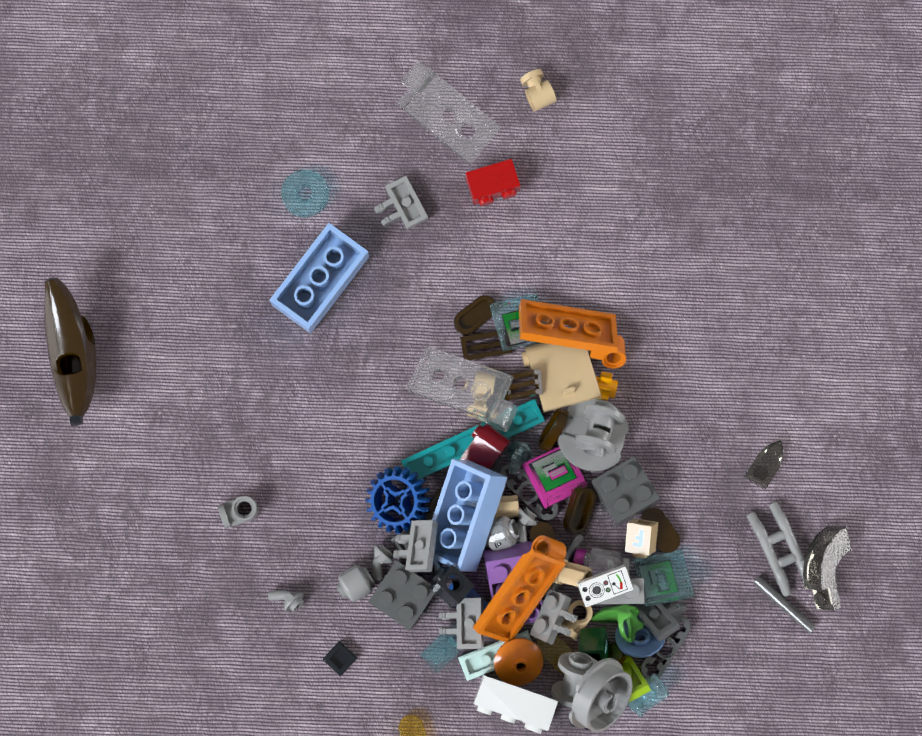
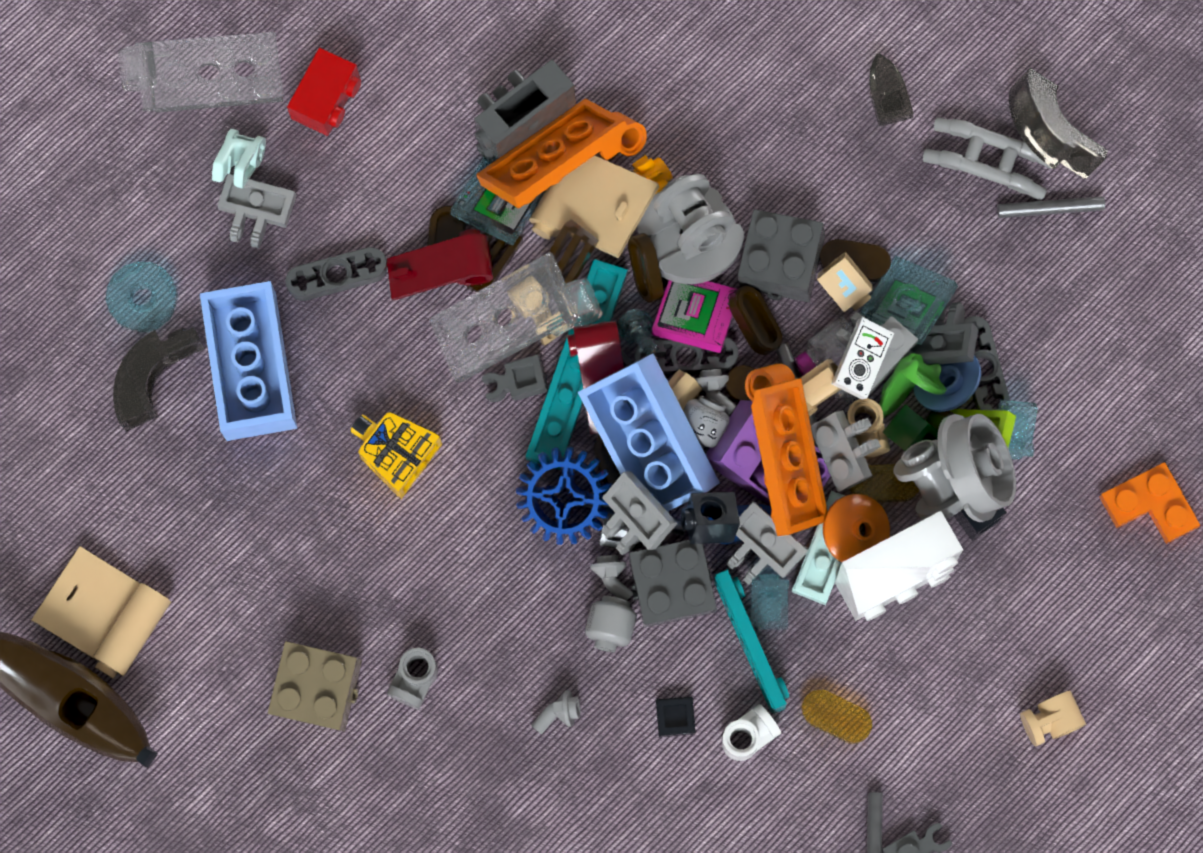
camera: 40 degrees left, 5 degrees down
(130, 327) = (101, 612): none -> tan door
(188, 467) = (315, 686): none -> dark tan brick
(266, 229) = (141, 369): none -> clear smoke arch
(343, 393) = (395, 449): none -> yellow torso
(372, 704) = (758, 726): none -> white piece
(387, 274) = (314, 291): none -> dark grey beam
(424, 173) = (238, 151): none -> light aqua piece
(426, 629) = (773, 689): none -> teal plate
(438, 421) = (522, 380): none -> dark grey plate
(459, 326) = (456, 260): none -> dark red door
(574, 290) = (522, 110): none -> dark grey piece

